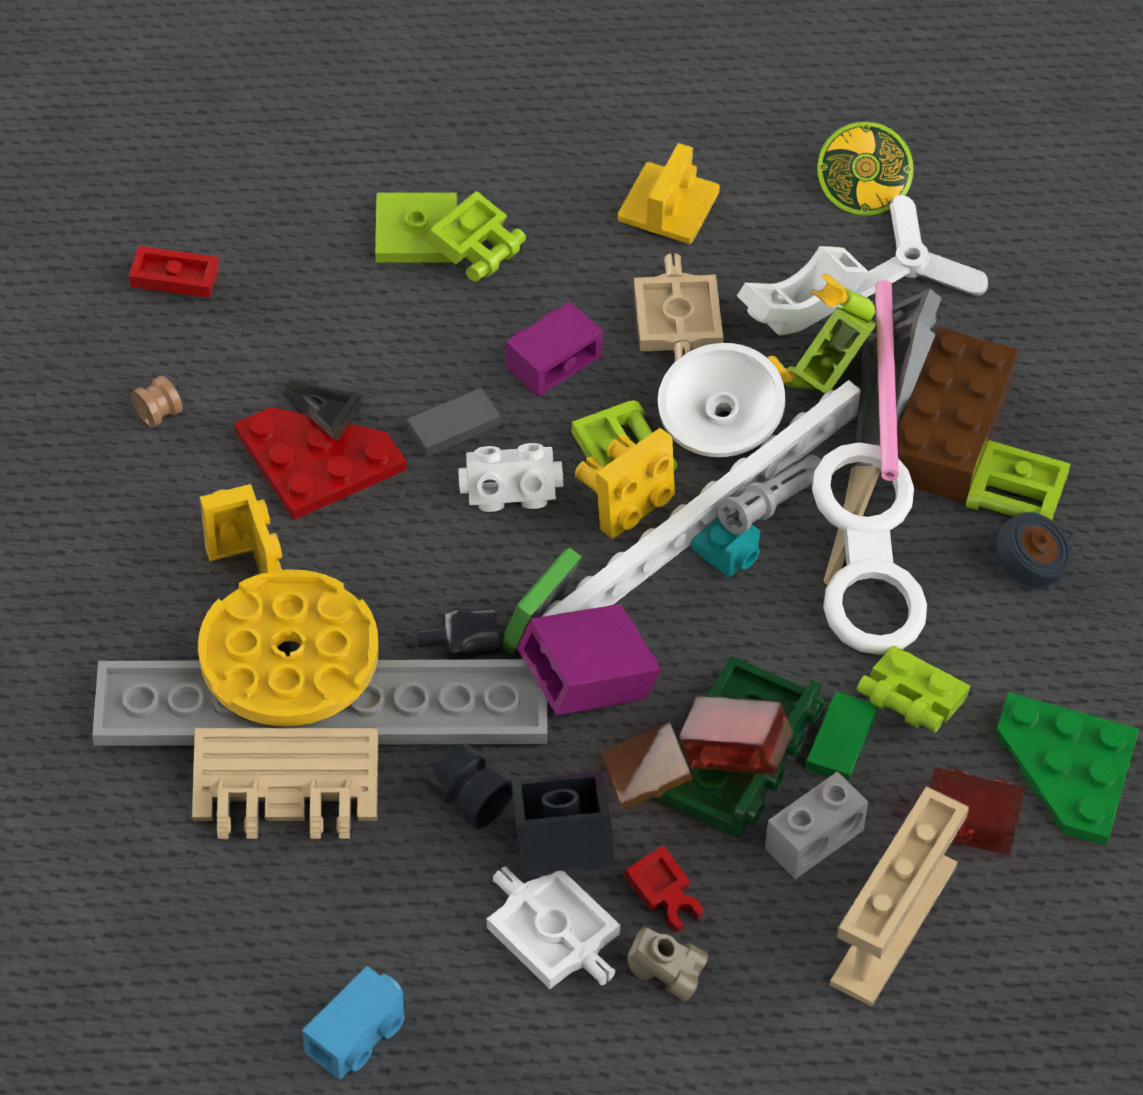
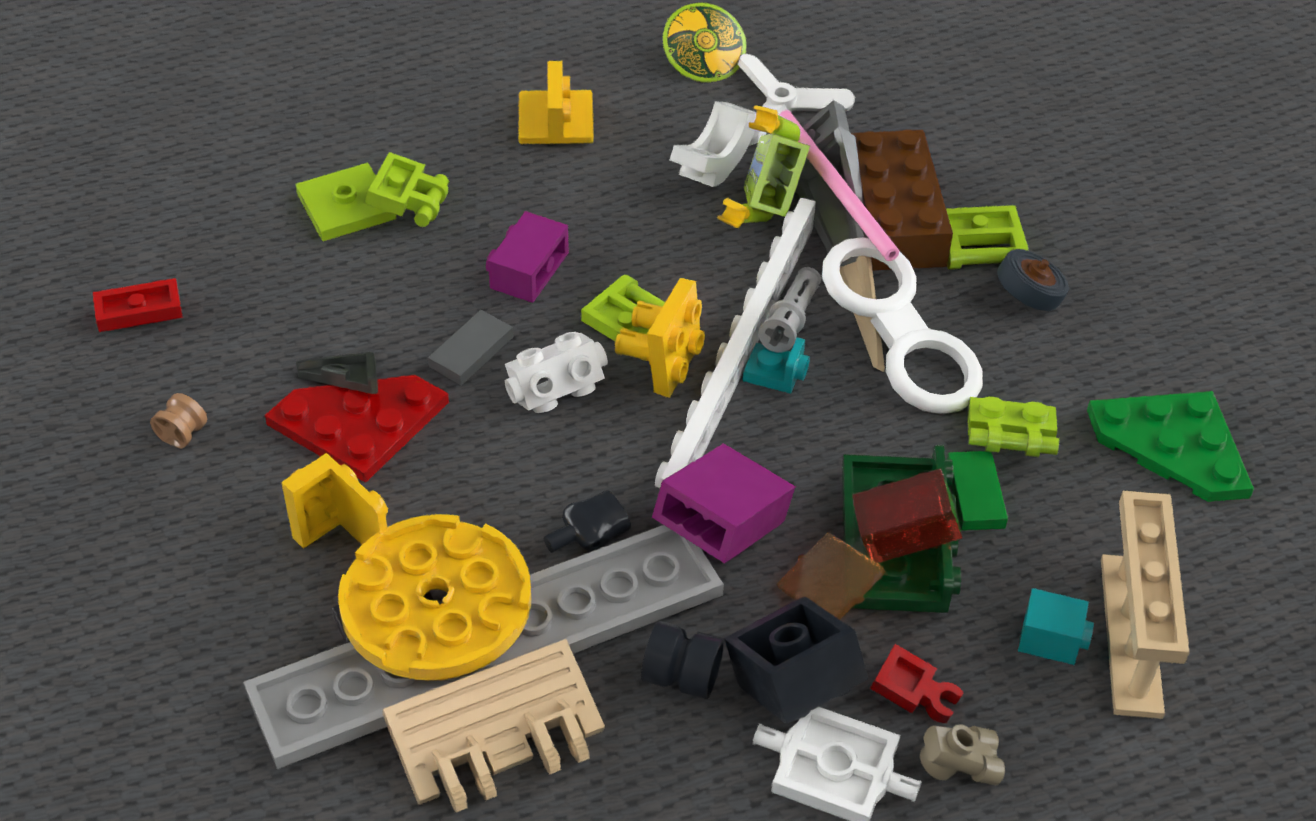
camera: 25 degrees left, 5 degrees down
(545, 592) = (651, 465): bright green tile -> none
(677, 310) = (617, 195): tan plate -> none
(716, 381) = (705, 231): white dish -> none
(816, 825) = (1013, 572): light grey brick -> none
(821, 887) = (1055, 627): none -> teal brick
(991, 810) = (1101, 499): clear red brick -> none

